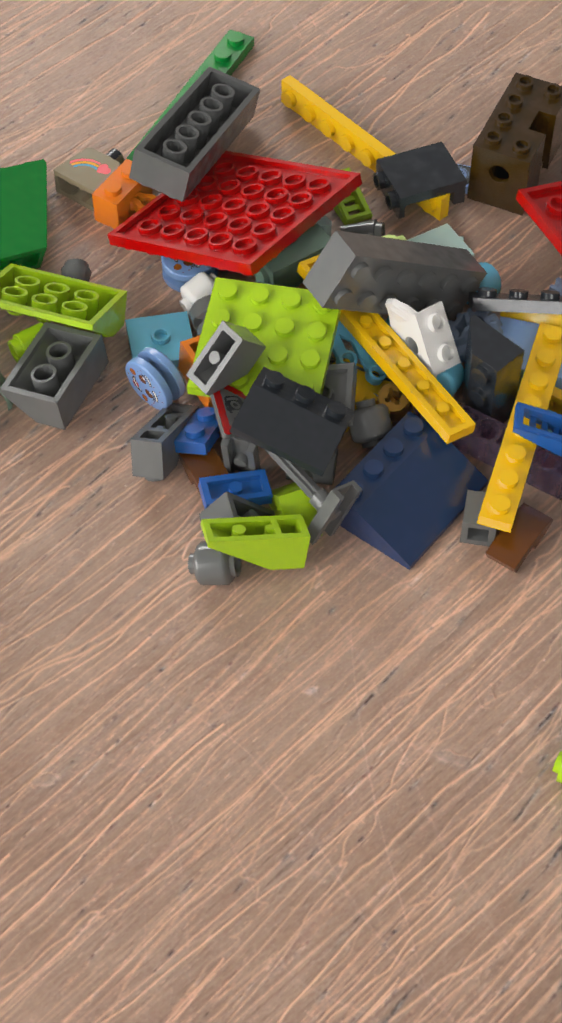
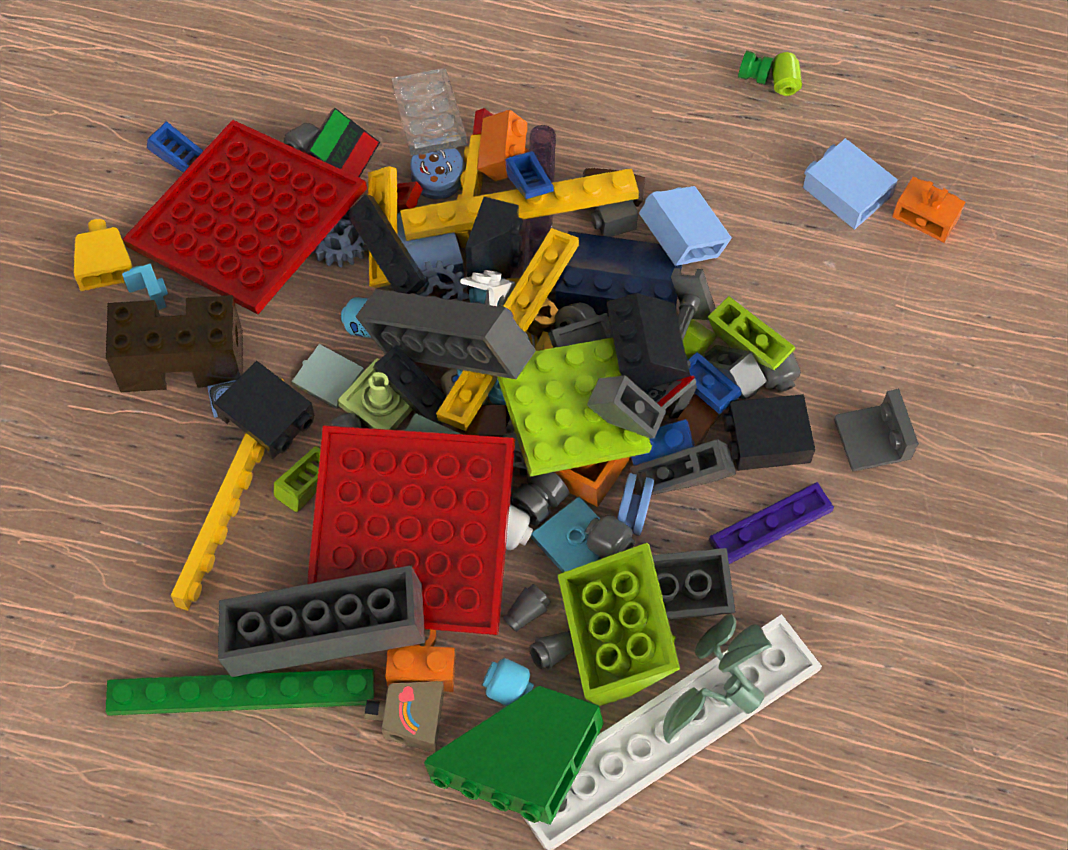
camera: 120 degrees left, 10 degrees up
(68, 486) = (772, 522): none -> dark purple tile
(69, 239) = (507, 681): none -> medium azure head
(88, 608) = (877, 434): none -> dark grey bracket
(123, 278) = (527, 607): none -> dark grey cone
(131, 340) = (608, 536): none -> dark grey head
(153, 522) = (769, 432): none -> black brick
(313, 811) = (928, 209): none -> orange brick
(395, 750) = (849, 183): none -> light blue brick
(427, 558) = (684, 225): none -> light blue brick

